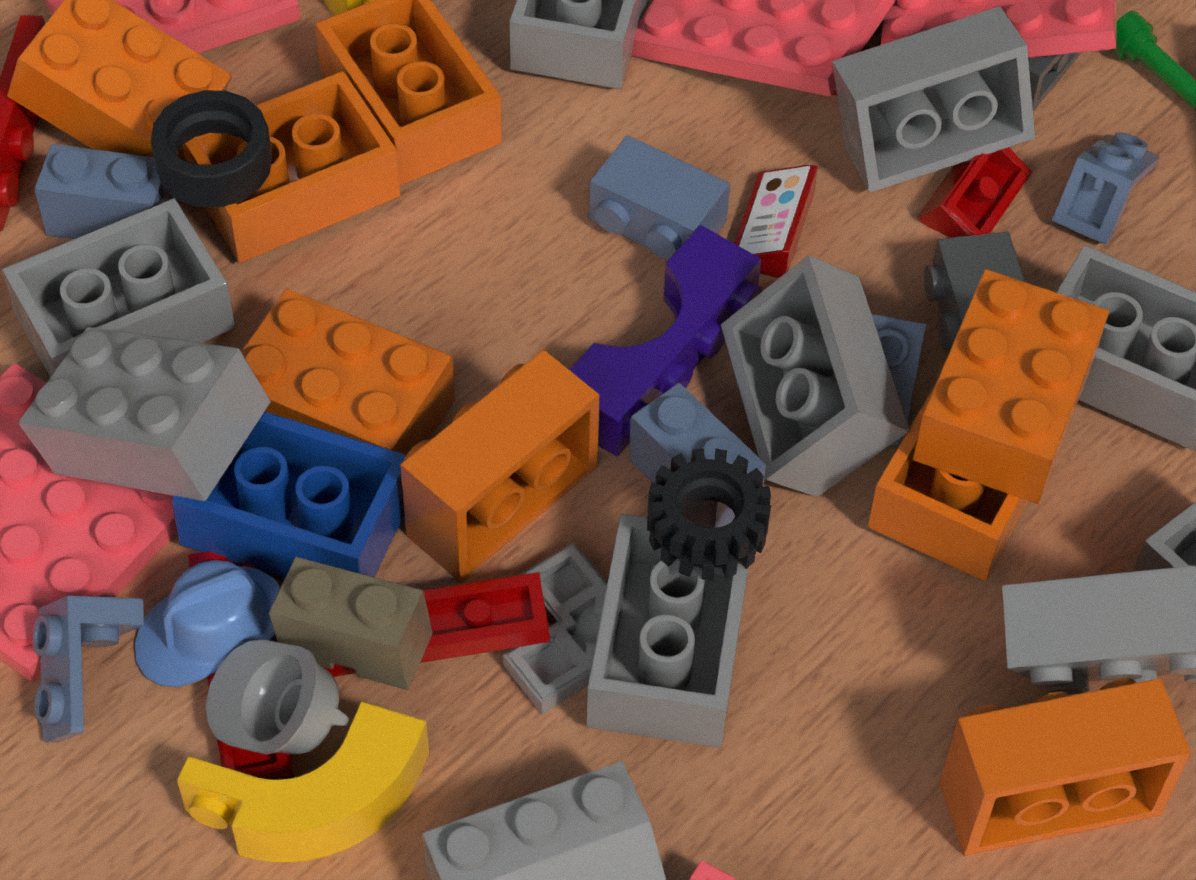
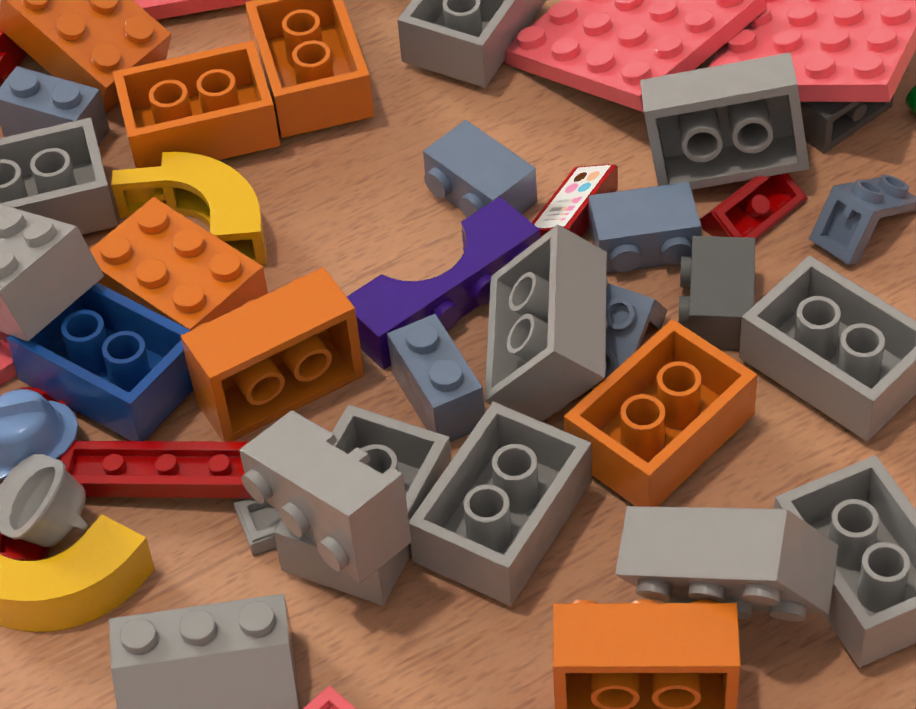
camera: 20 degrees right, 5 degrees down
(203, 114) = (130, 107): black tyre -> none
(333, 269) = (198, 189): none -> yellow arch
(353, 621) = (112, 452): dark tan brick -> none
(651, 632) = (328, 495): none -> light grey wedge
(708, 481) = (418, 437): black tyre -> none
(827, 600) = (501, 503): none -> light grey brick
(873, 231) = (644, 226): none -> sand blue brick
(1010, 386) = (694, 352): orange brick -> none

